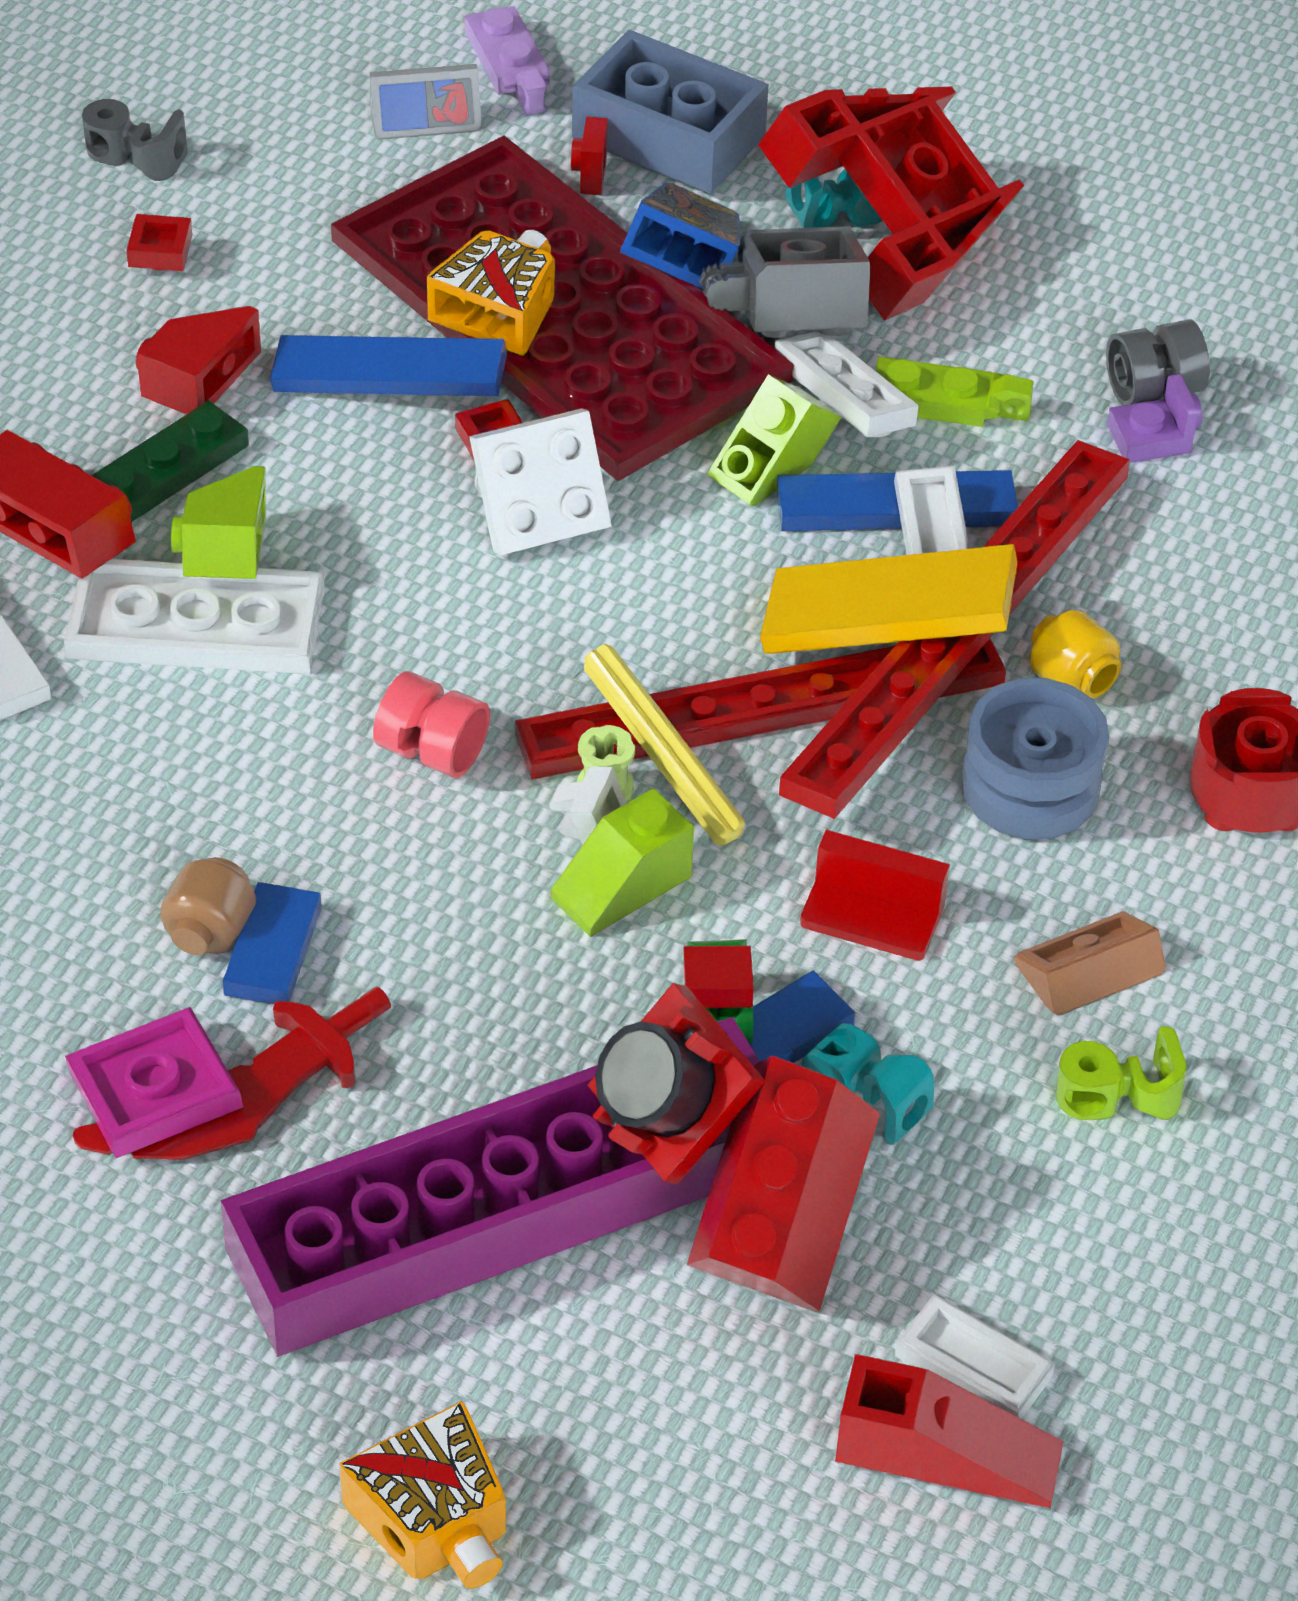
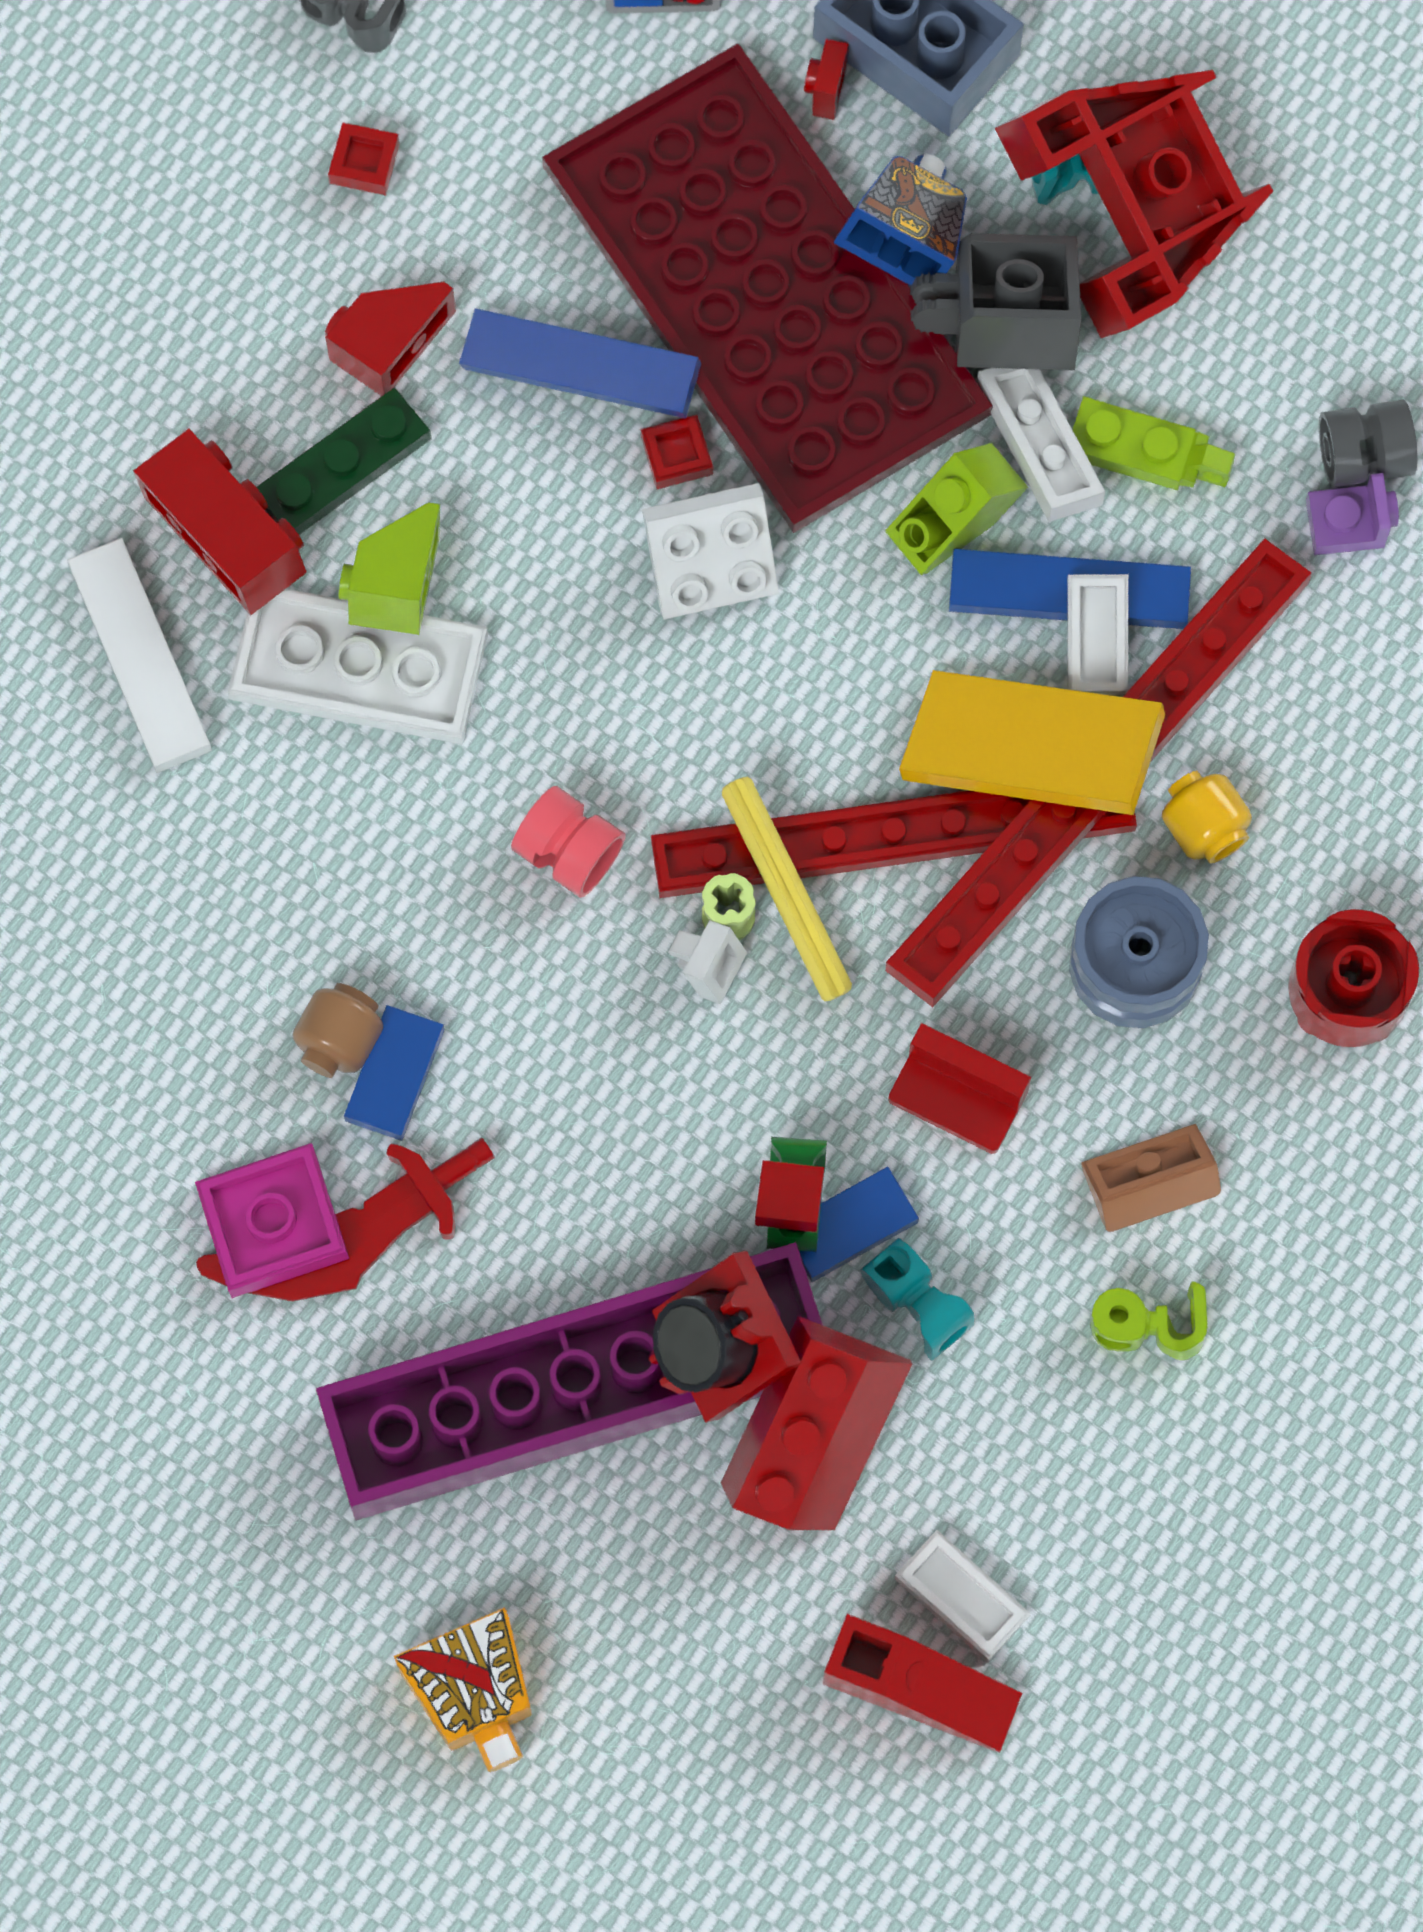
camera: 10 degrees right, 25 degrees up
(495, 288) = (699, 285): torso -> none
(626, 863) = (729, 1027): lime slope -> none

